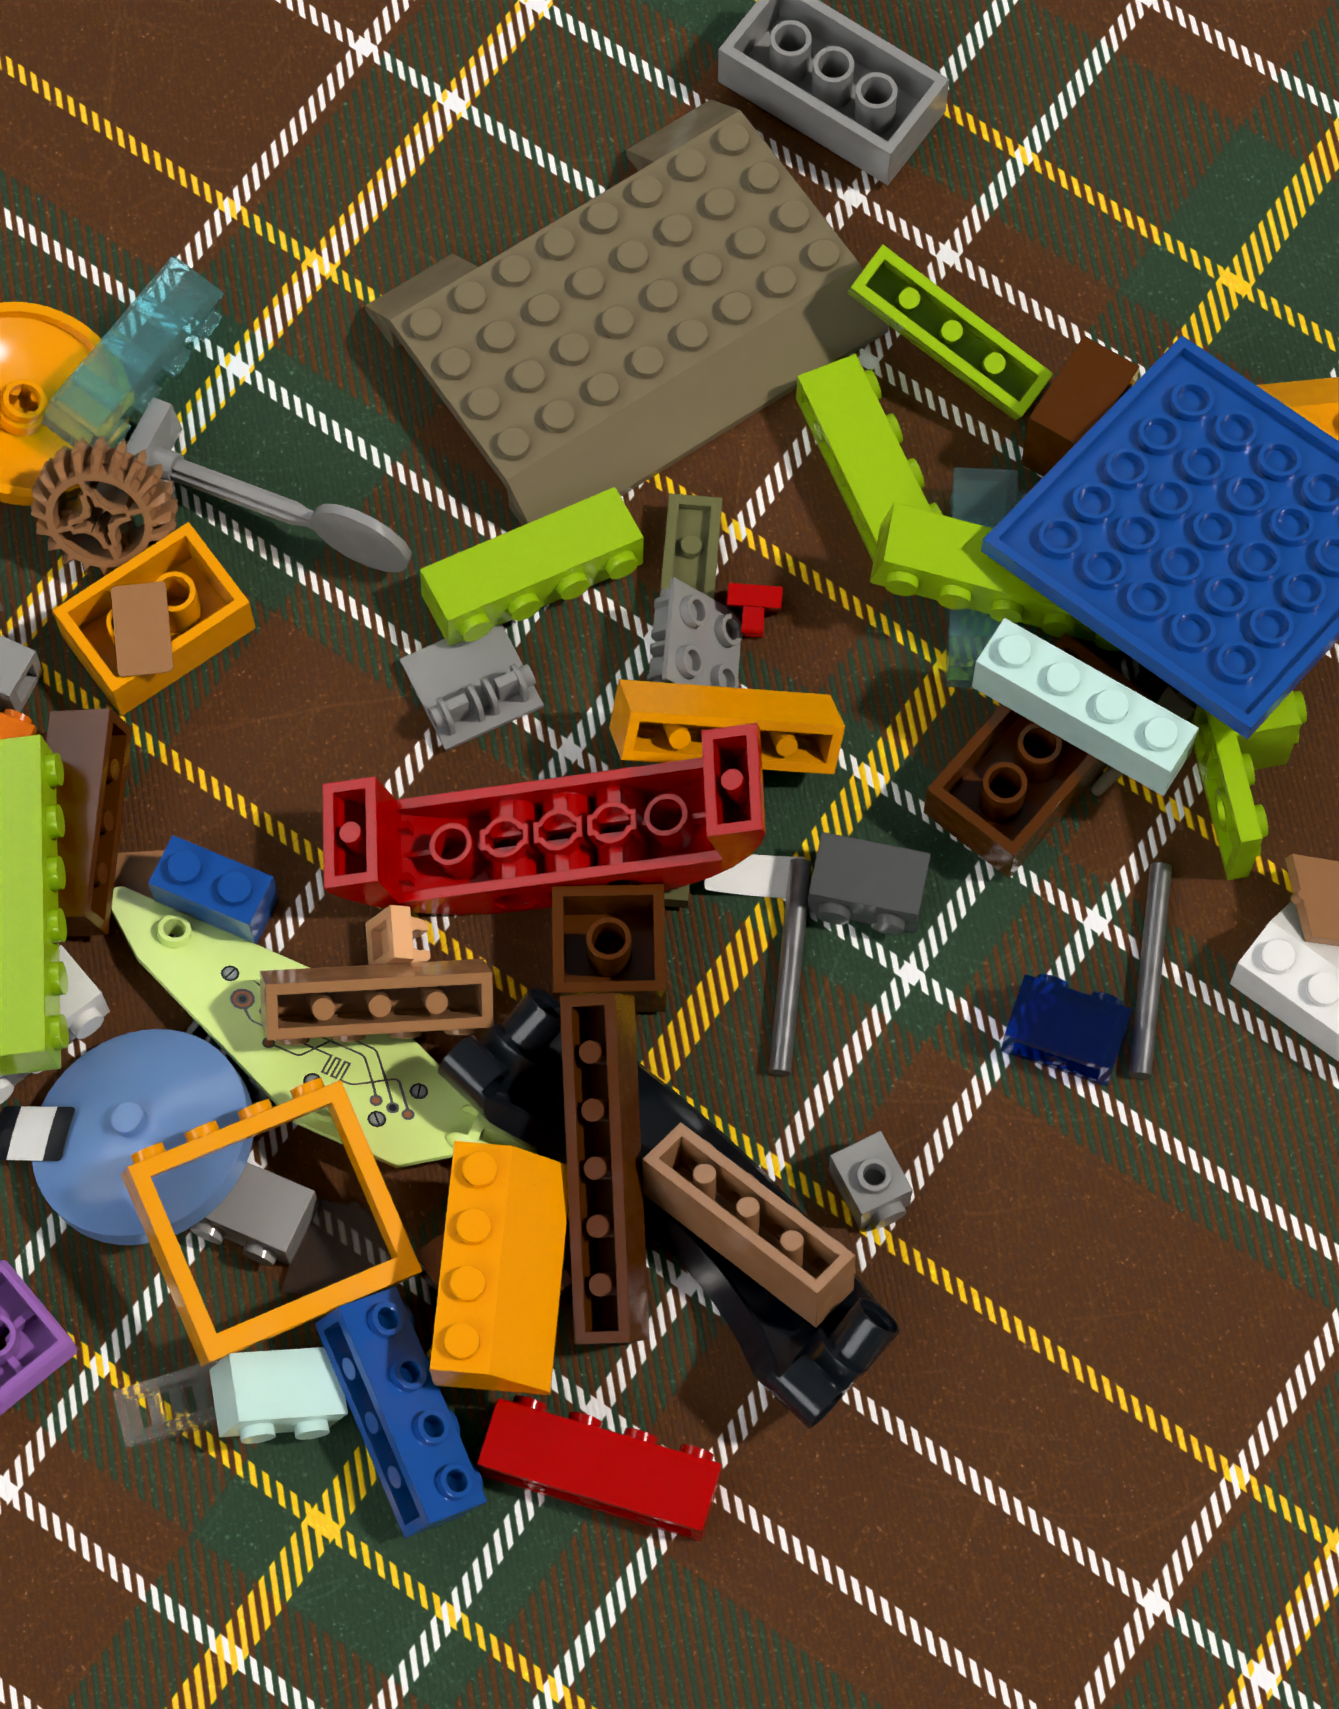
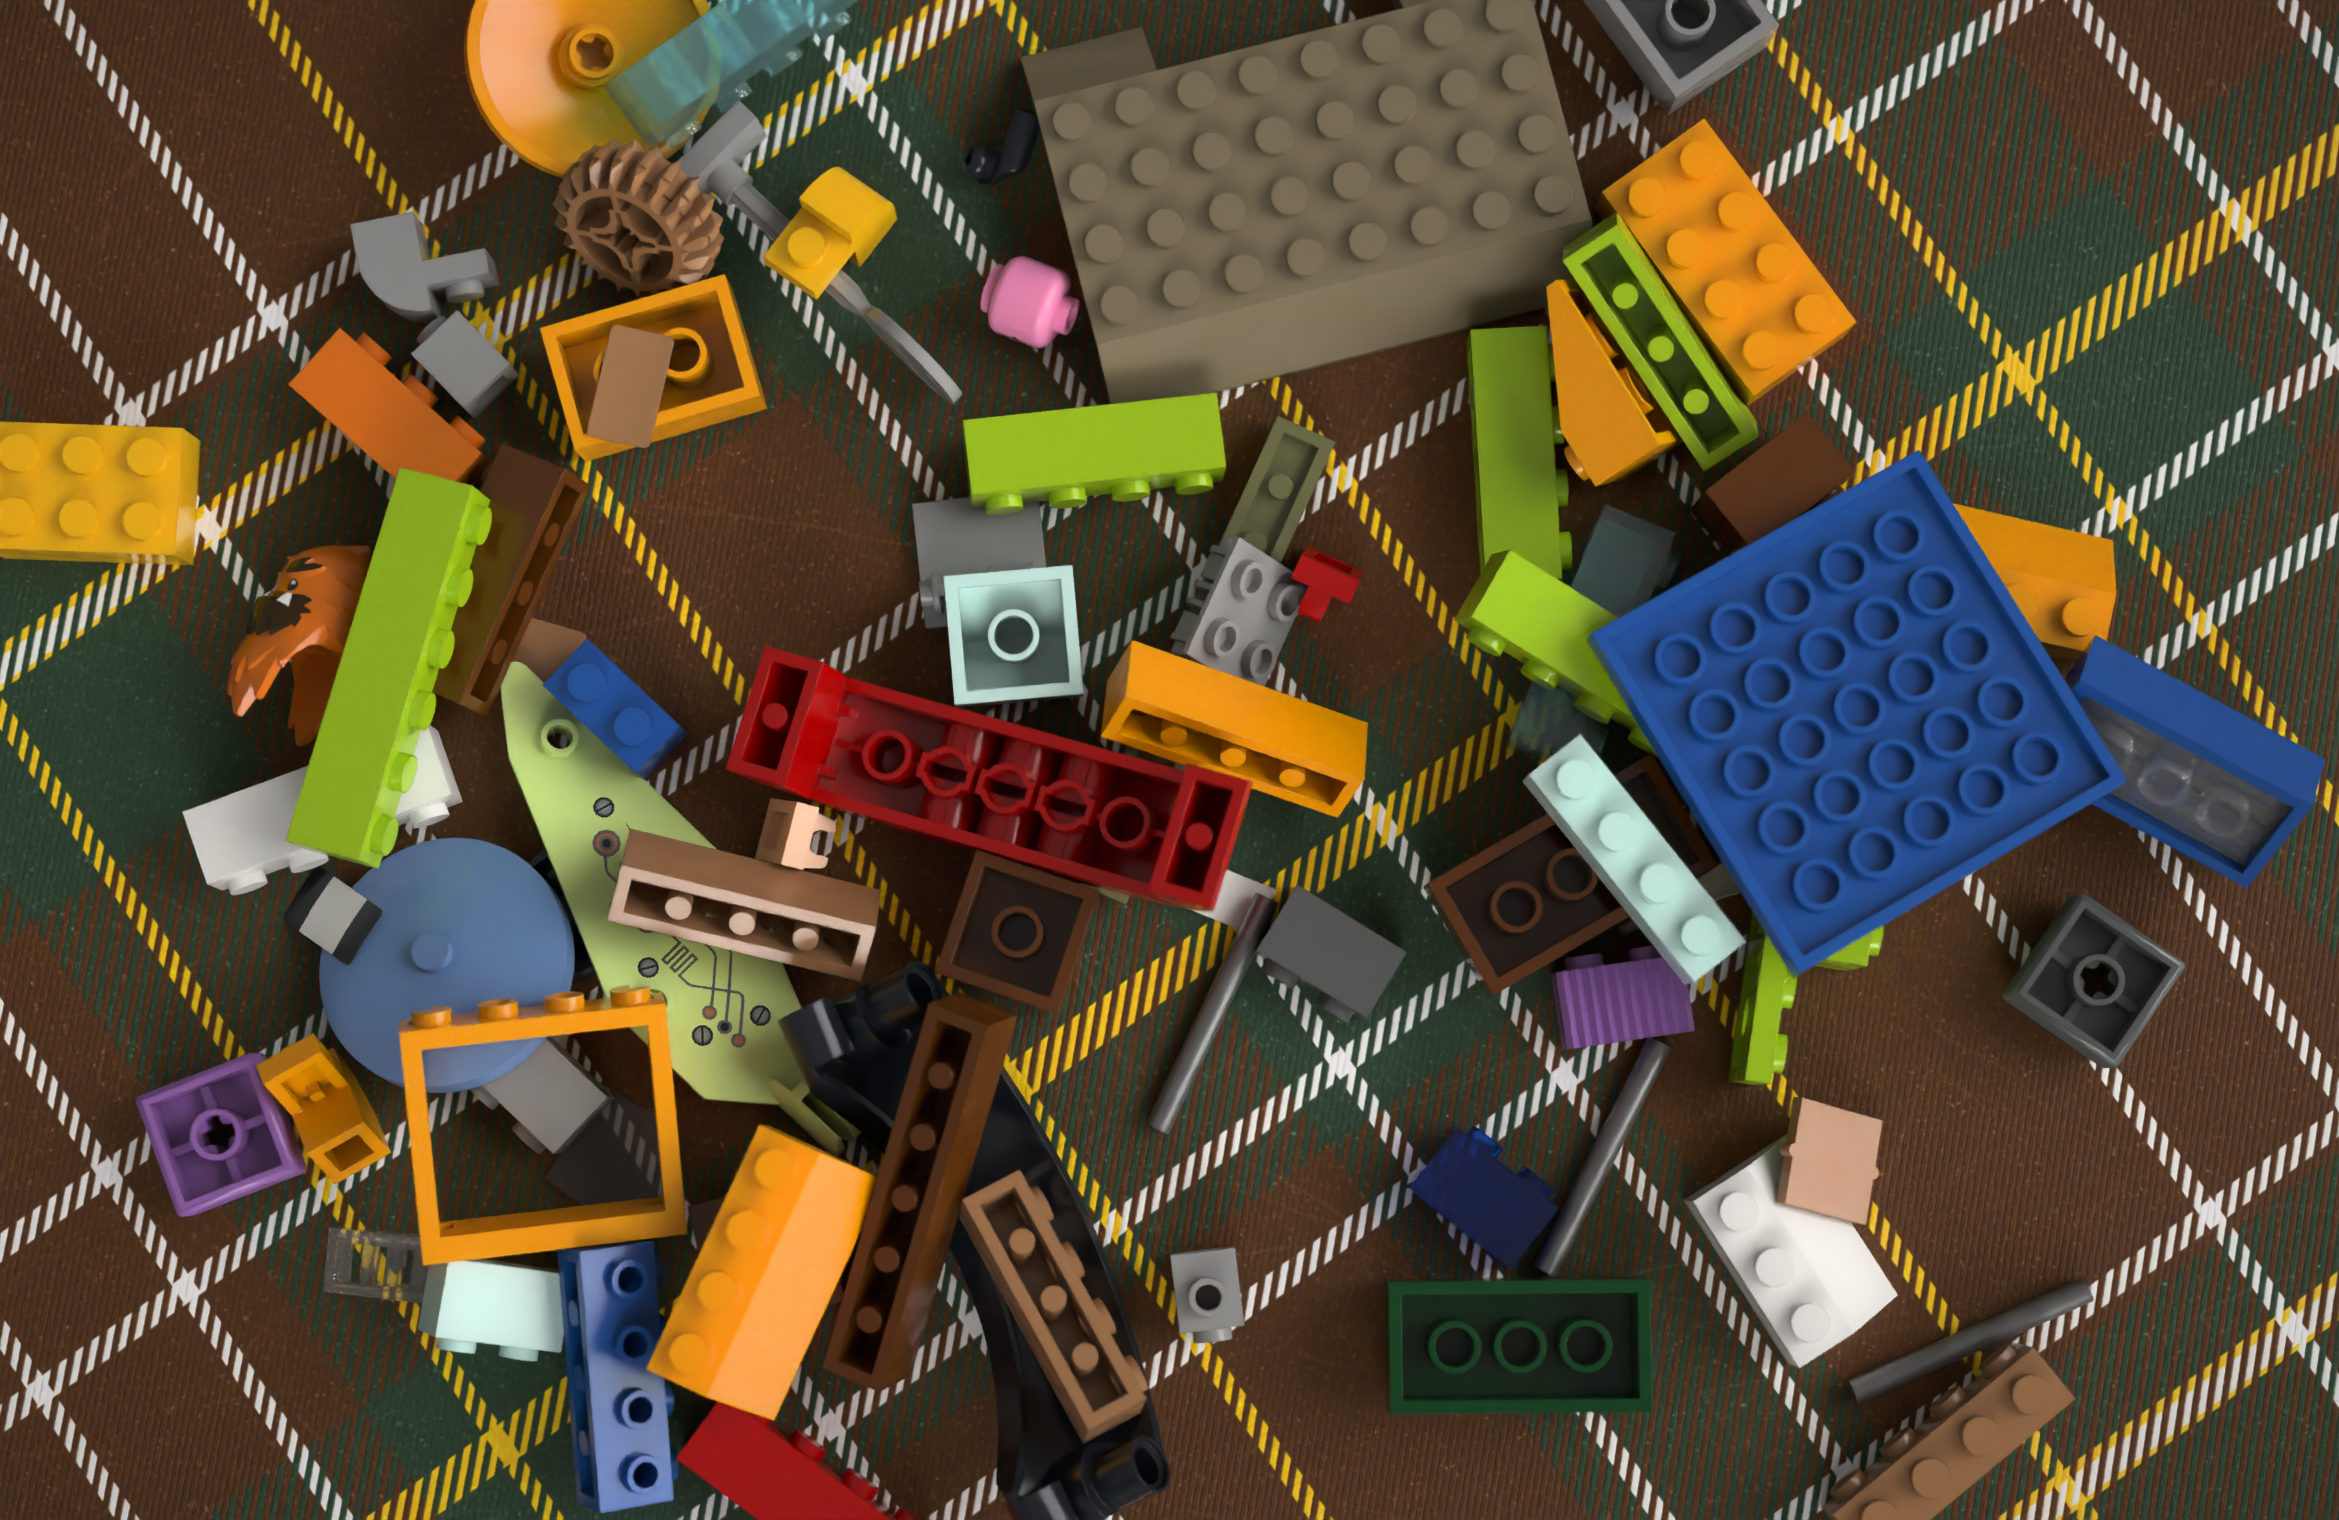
camera: 20 degrees right, 15 degrees up
(77, 1284) = (326, 1106): none -> light orange brick
(263, 465) = (835, 224): none -> yellow brick
(382, 377) = (1004, 157): none -> black arm
(439, 474) = (1029, 301): none -> bright pink head
(522, 720) = (1013, 636): none -> light aqua slope
(937, 402) = (1602, 400): none -> light orange slope
(983, 261) = (1728, 261): none -> light orange brick
(1116, 839) = (1619, 1000): none -> medium lavender brick
(1142, 1130) = (1518, 1345): none -> dark green brick

